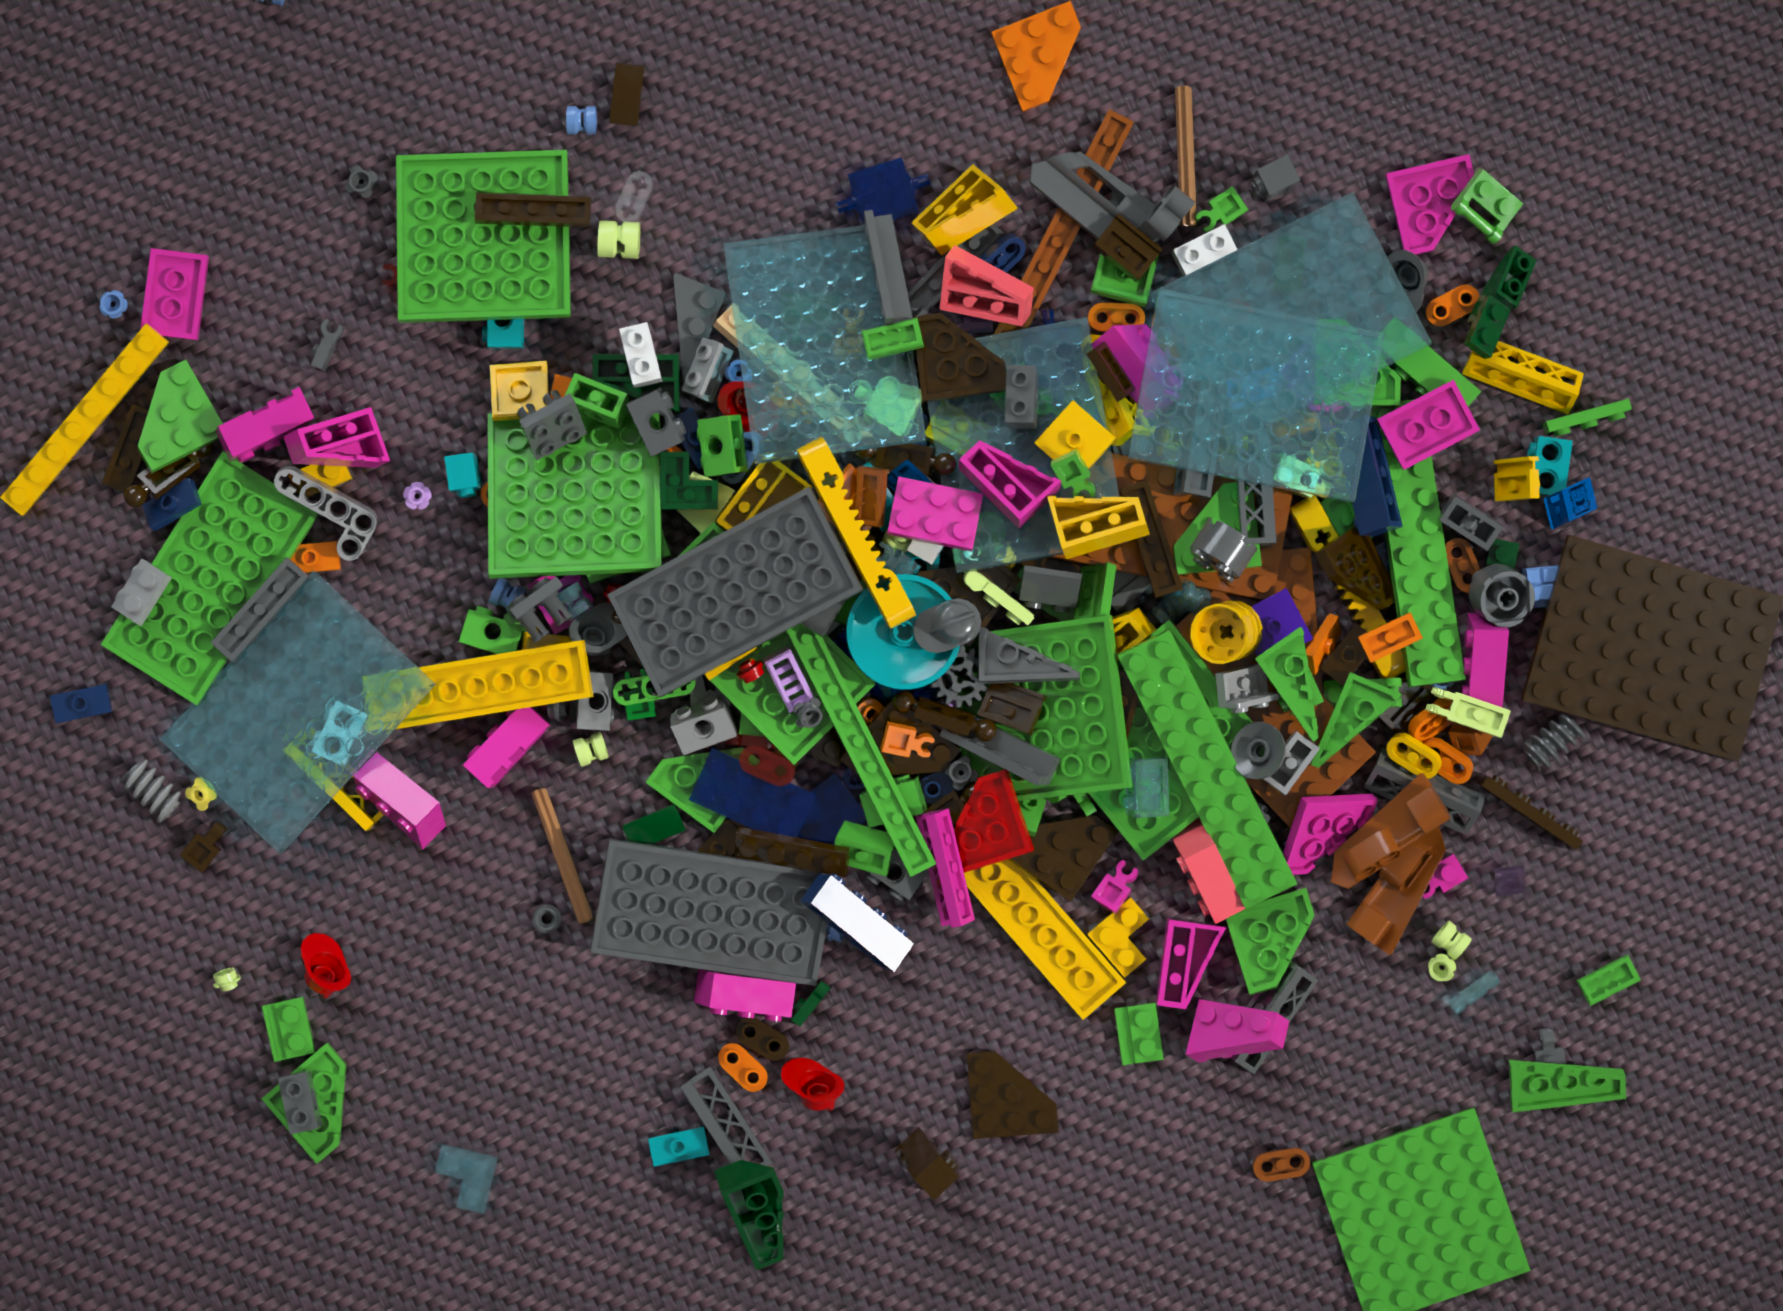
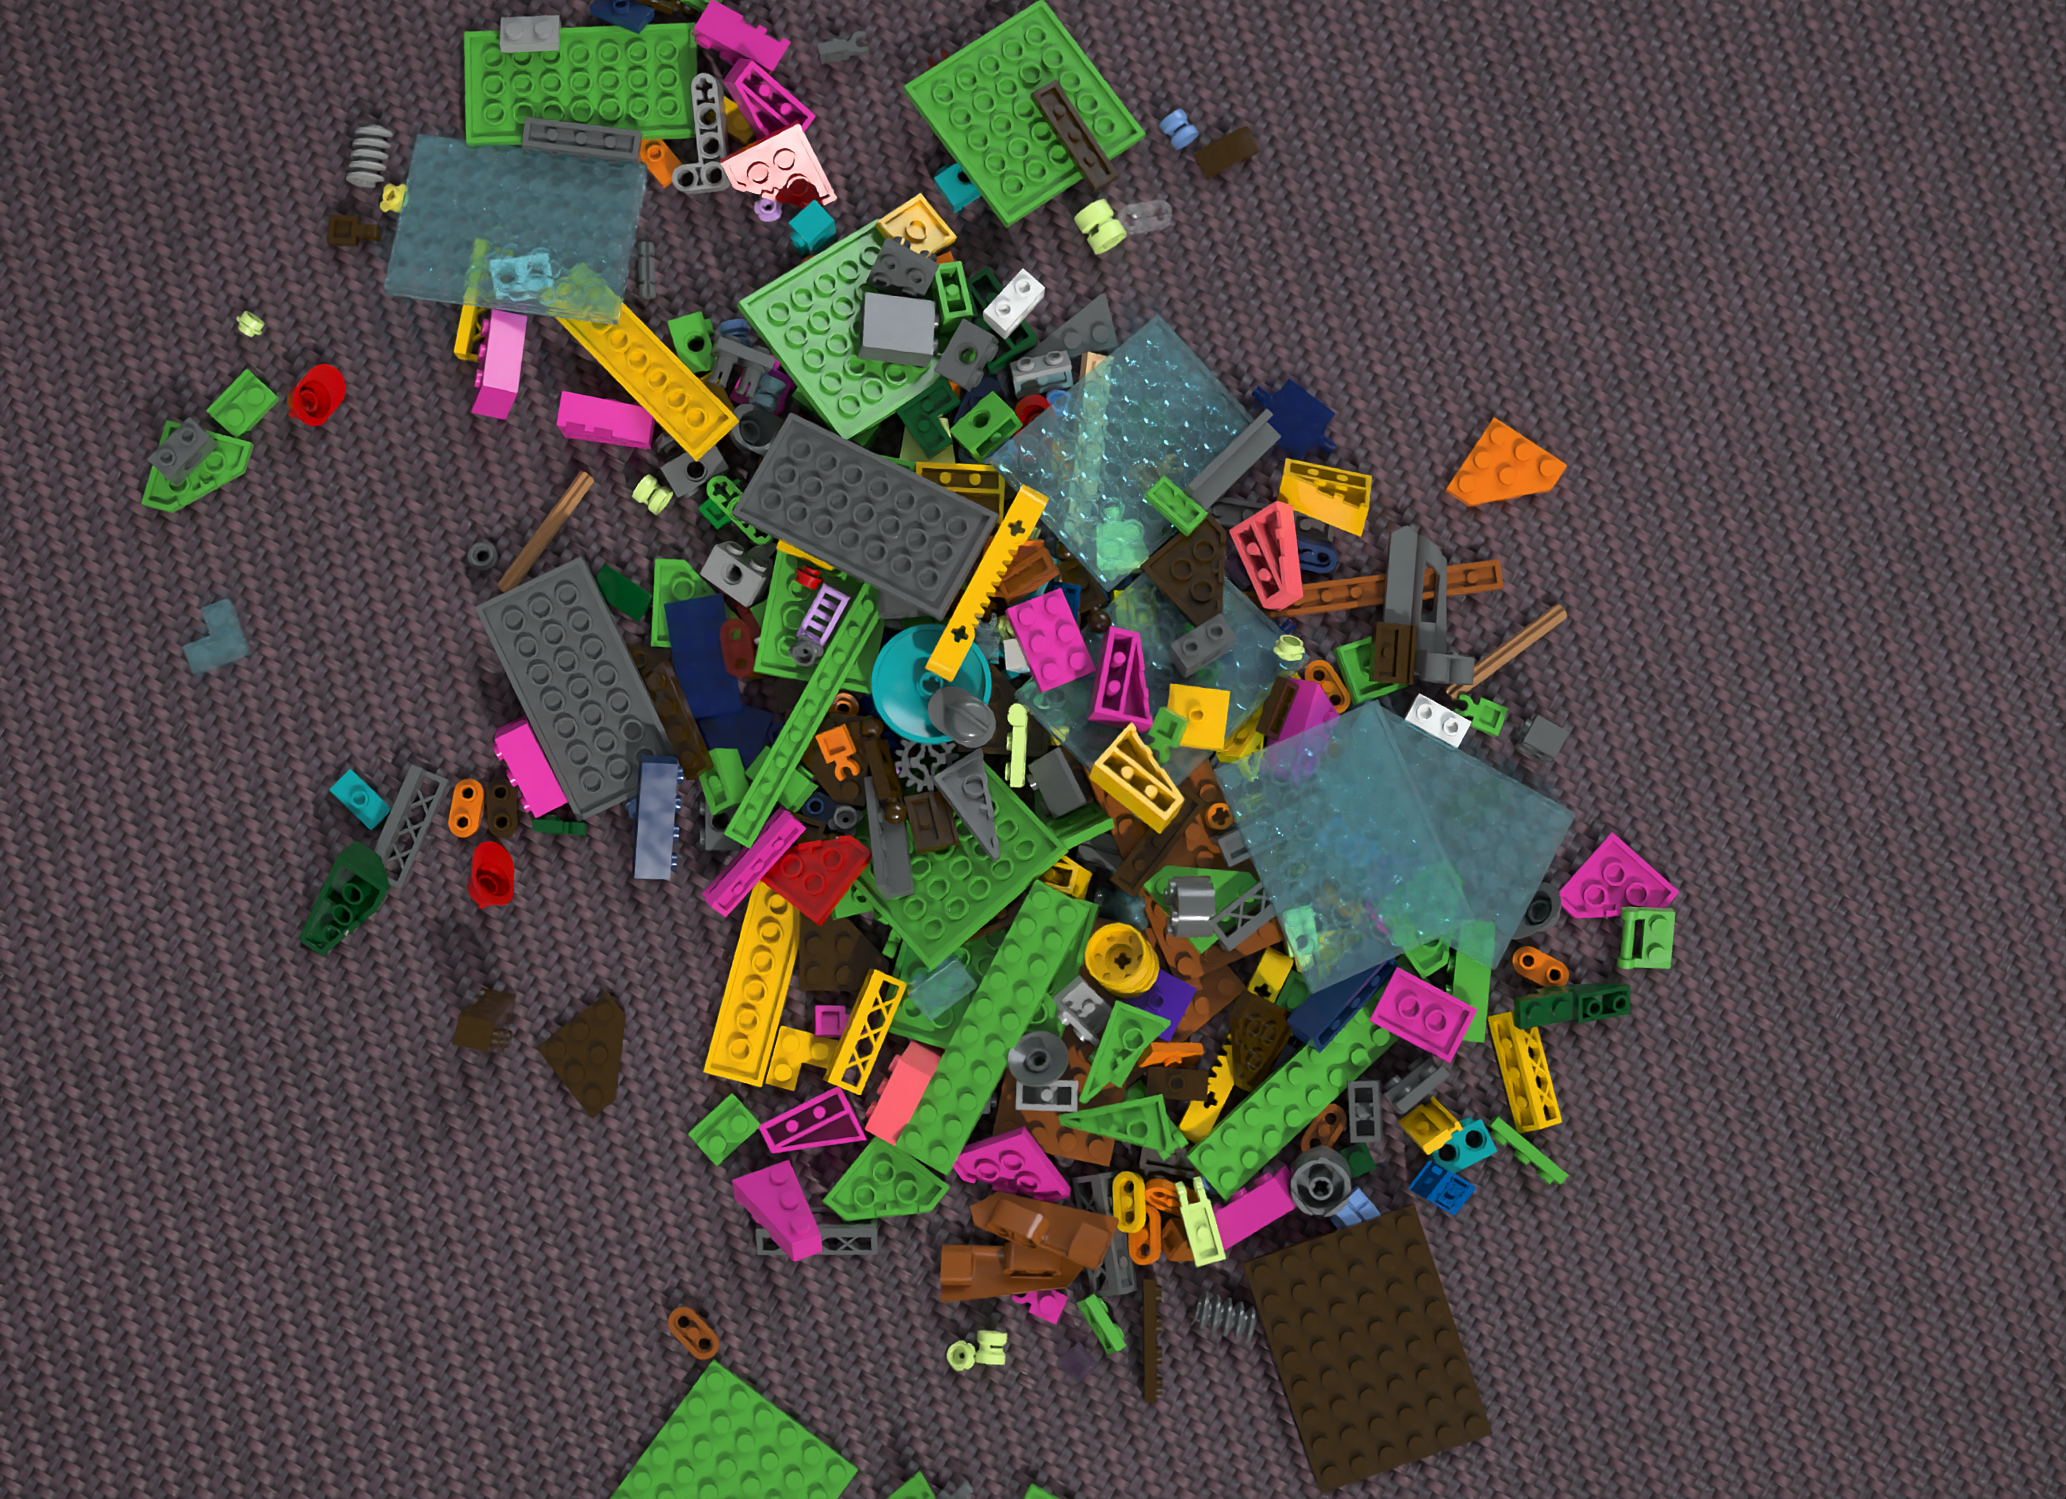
camera: 55 degrees right, 5 degrees down
(81, 703) = (404, 51): dark blue plate -> none
(396, 465) = (780, 169): none -> plate
(401, 629) = (646, 270): none -> dark grey axle
(596, 462) = (897, 329): none -> brick
(1070, 328) = (1289, 648): none -> yellowish green plate
(1130, 876) = (854, 1027): none -> yellow fence
(1155, 480) = (1212, 811): none -> orange bush
(1390, 637) = (1216, 1108): orange plate -> none
(1474, 992) = (959, 1399): clear light blue axle -> none
(1476, 469) = (1413, 1086): none -> dark grey plate
(1502, 842) = (1108, 1333): none -> bright green plate

